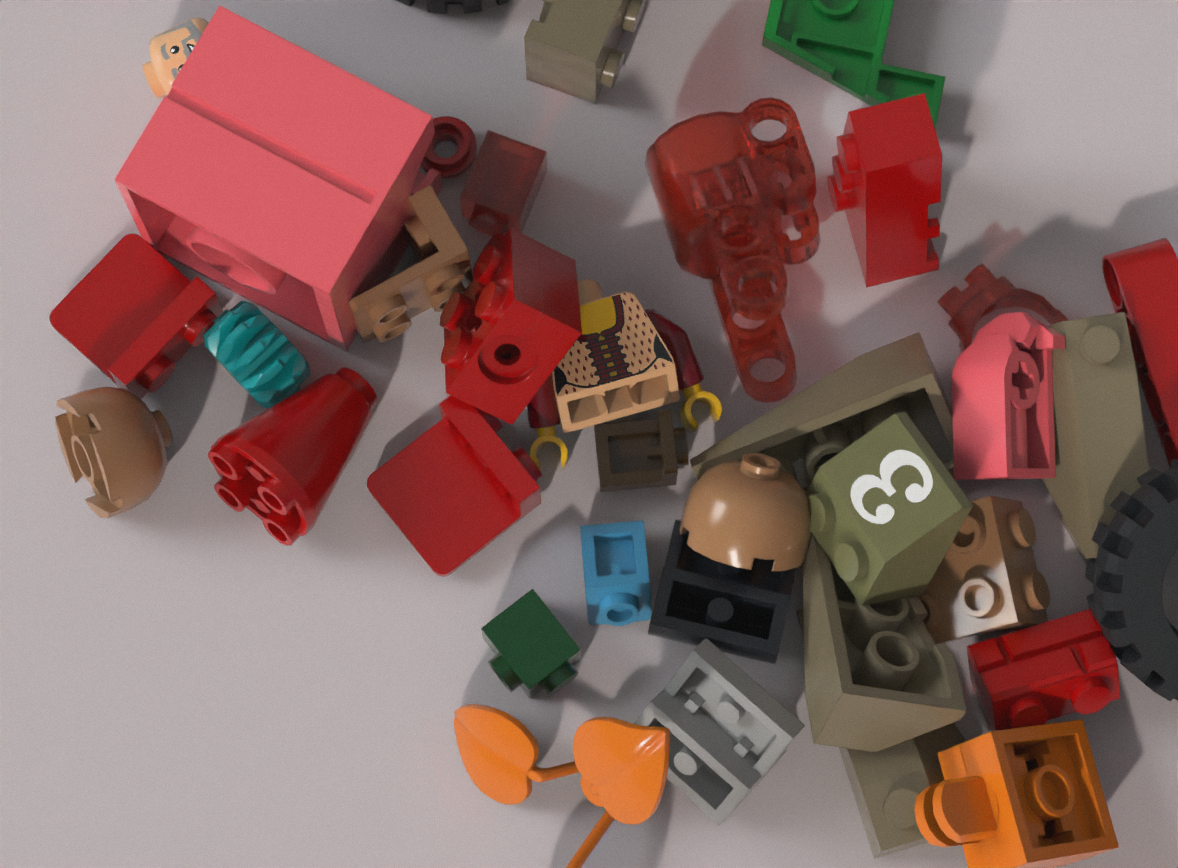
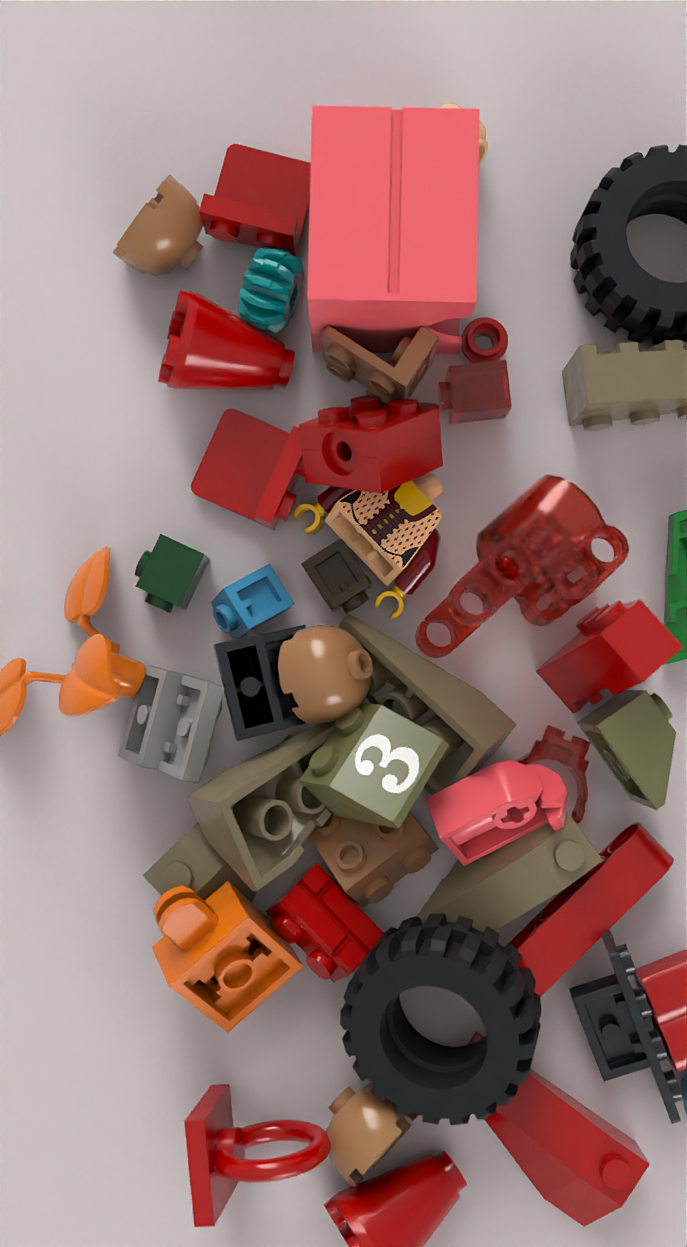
camera: 65 degrees right, 10 degrees up
(1008, 212) = (635, 743): none -> olive slope

